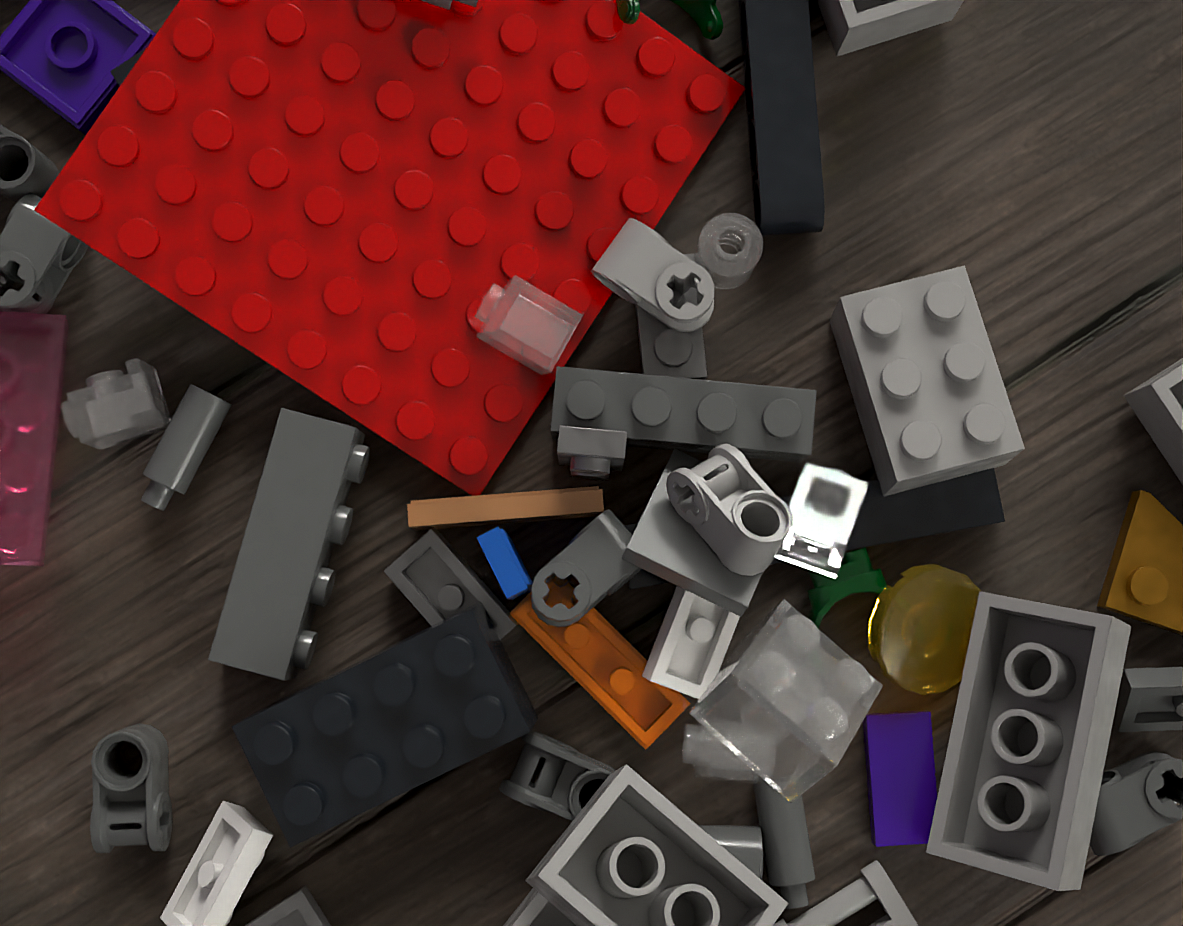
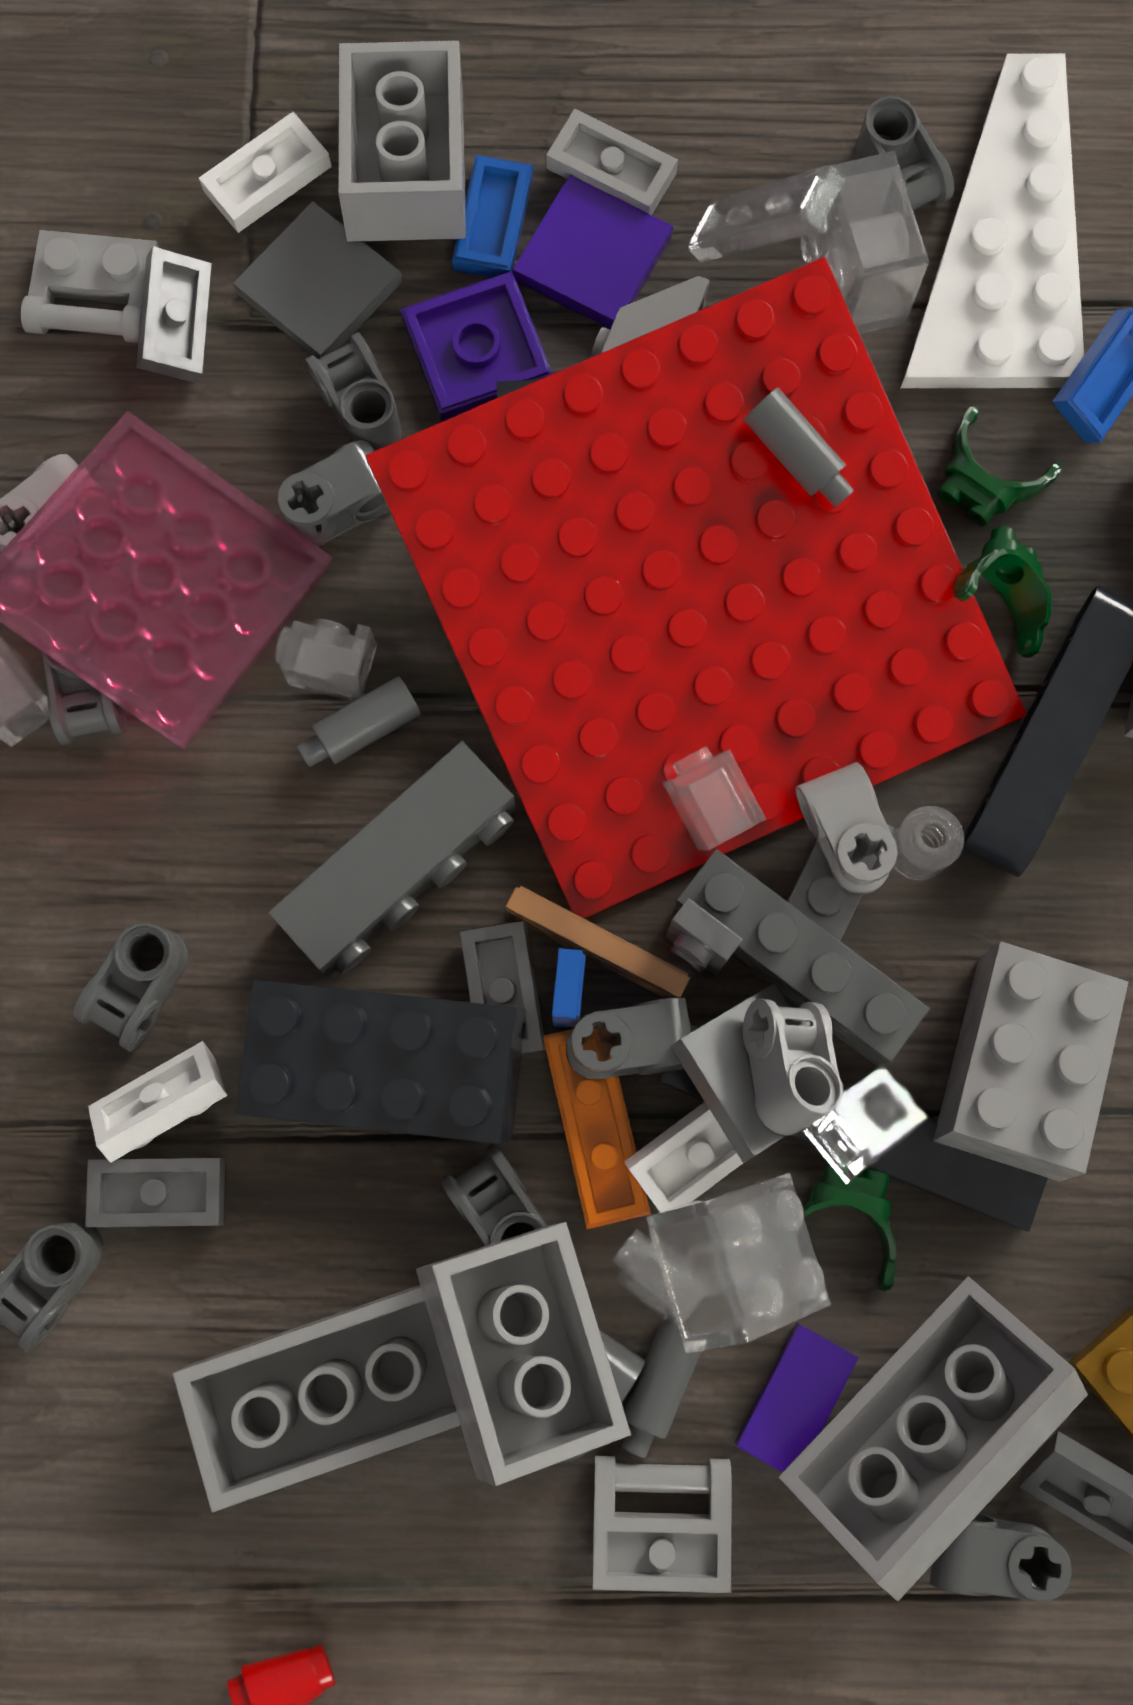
camera: 35 degrees right, 5 degrees down
(923, 628) = (897, 1278): clear yellow tile -> none

